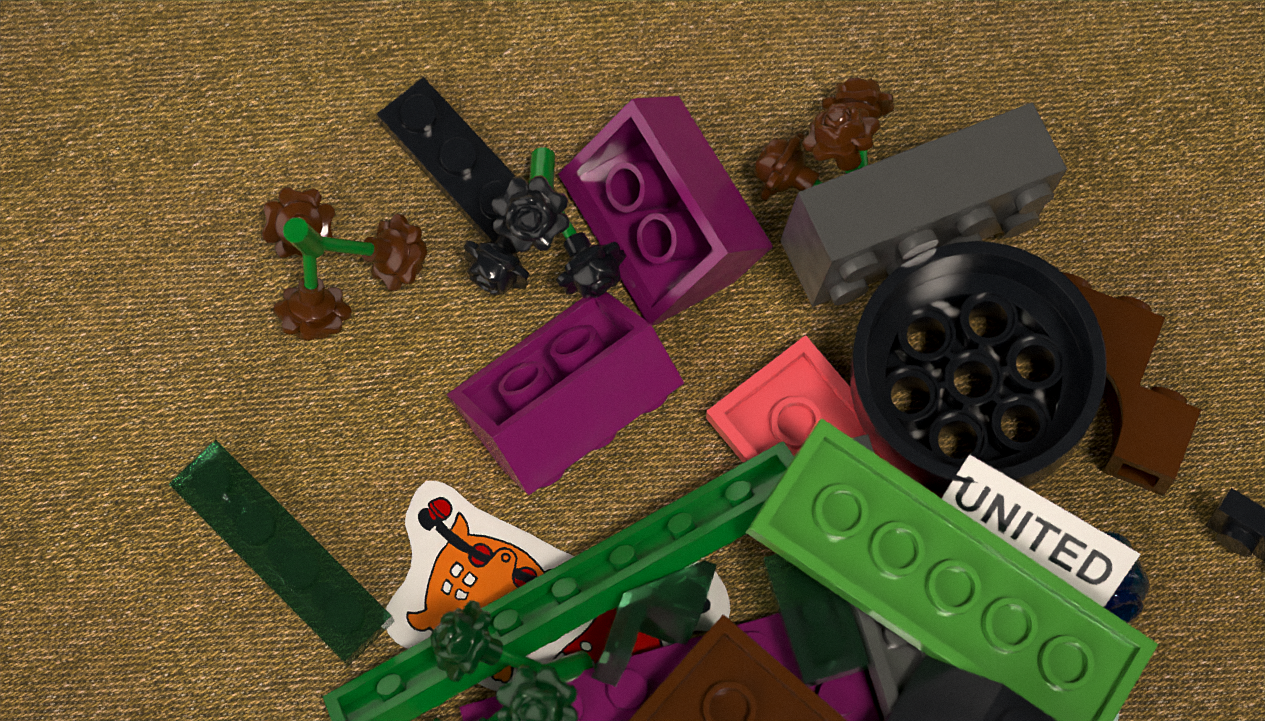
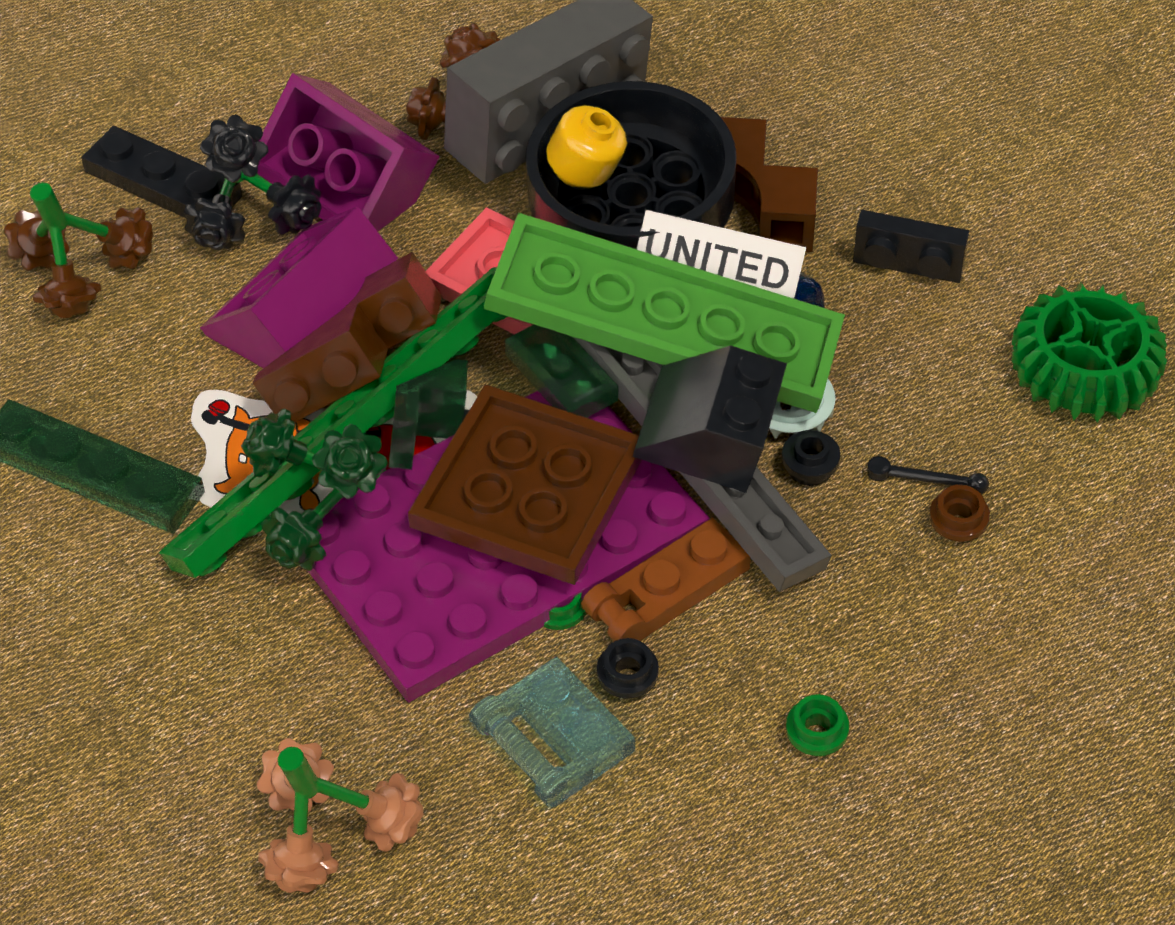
camera: 20 degrees left, 20 degrees down
(589, 507) = (353, 343): none -> reddish brown arch
(931, 334) = (586, 146): none -> yellow head

